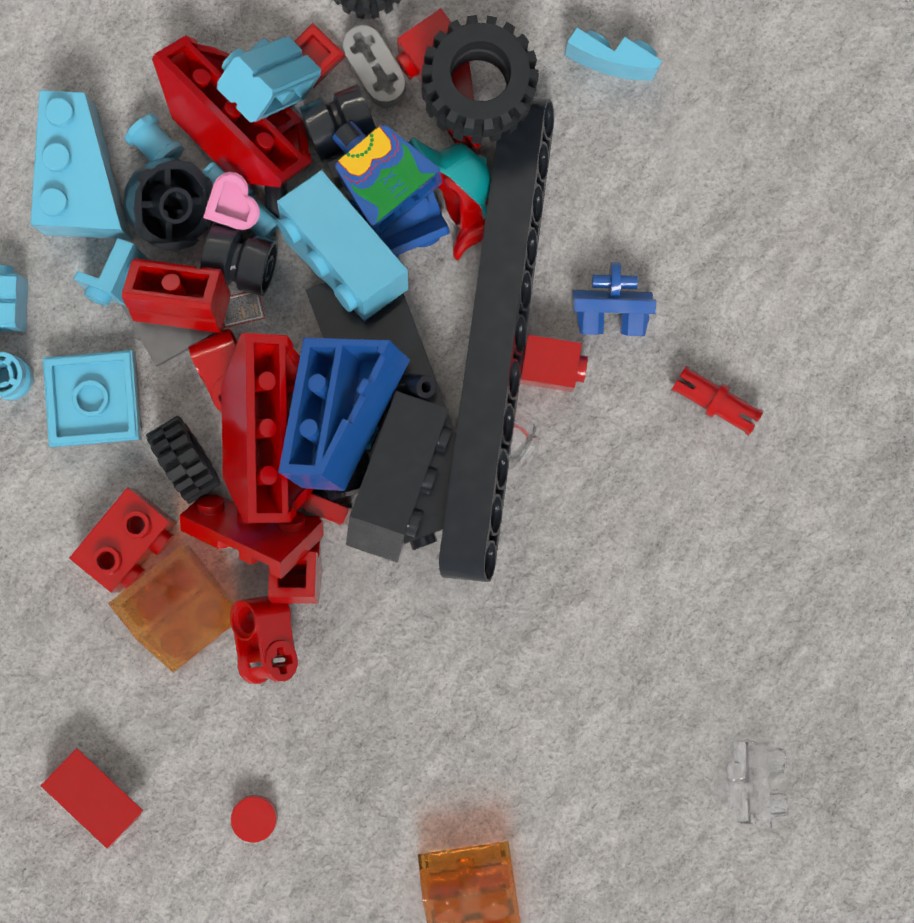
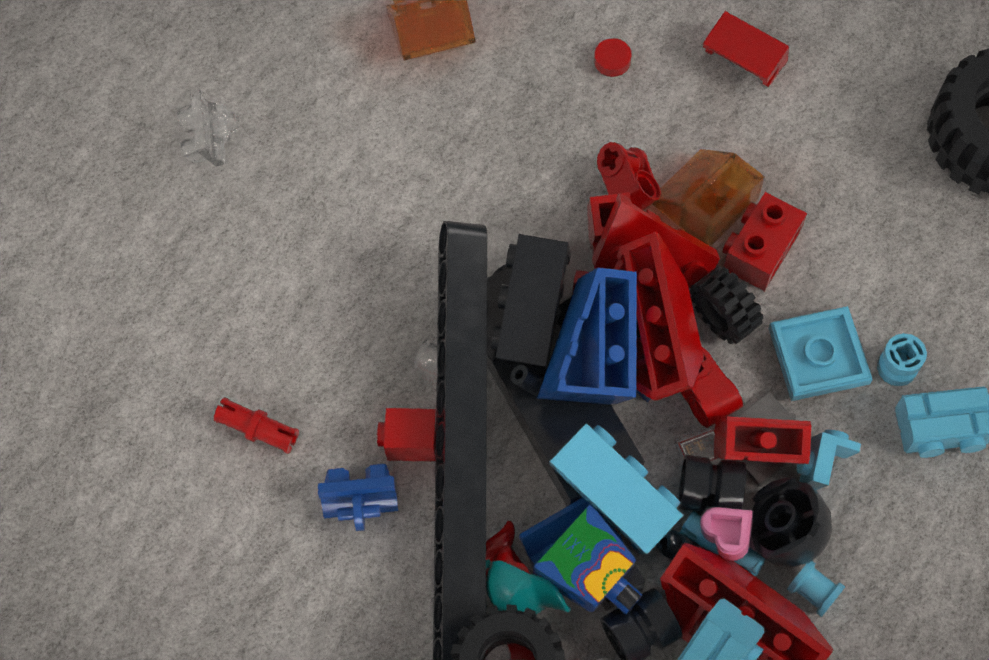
camera: 175 degrees right, 20 degrees down
(73, 171) = (886, 547): medium azure wedge -> none

